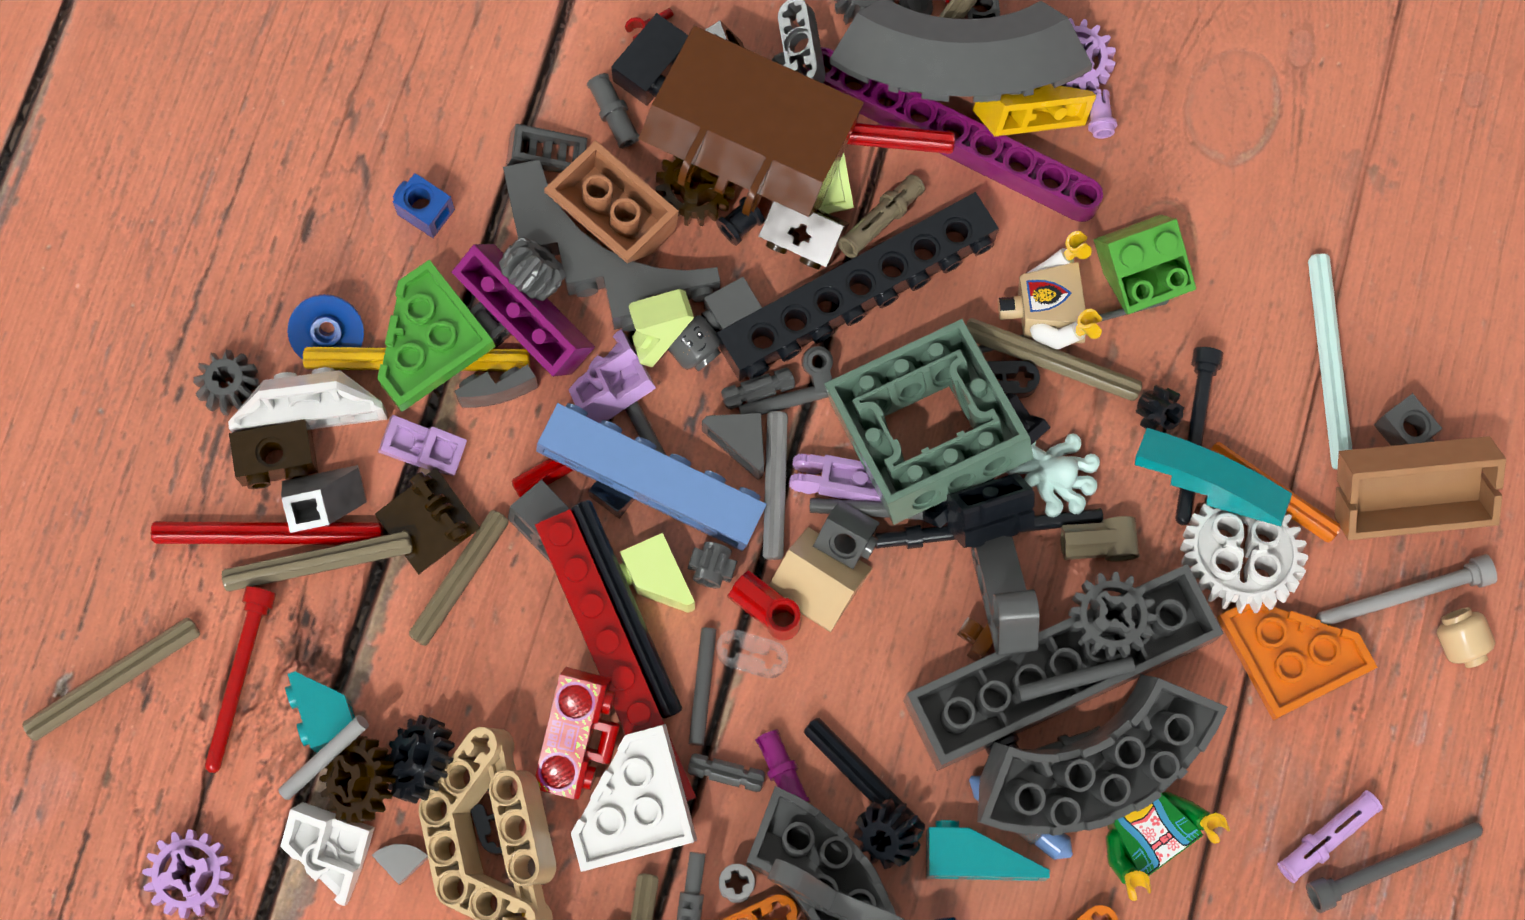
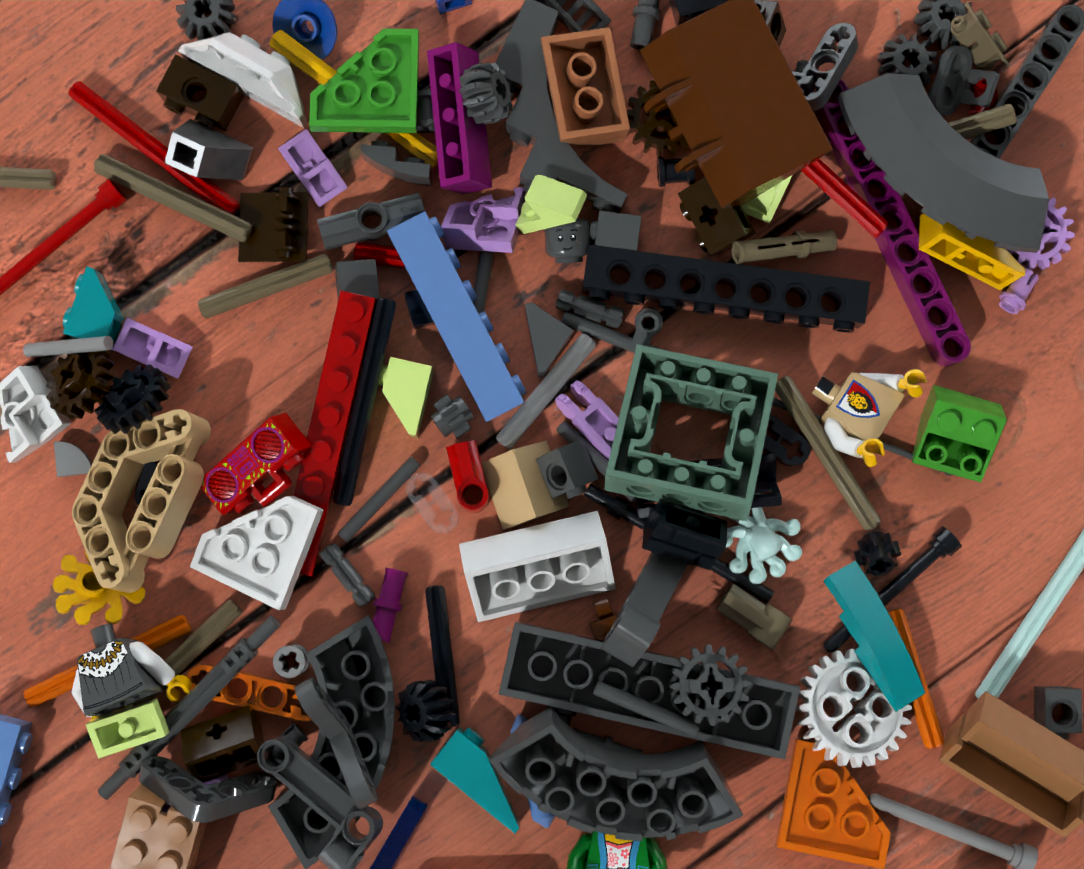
camera: 40 degrees right, 10 degrees up
(395, 706) = (152, 348): none -> lavender slope
(498, 470) = (349, 228): none -> dark grey piece
(886, 637) = (537, 566): none -> white slope

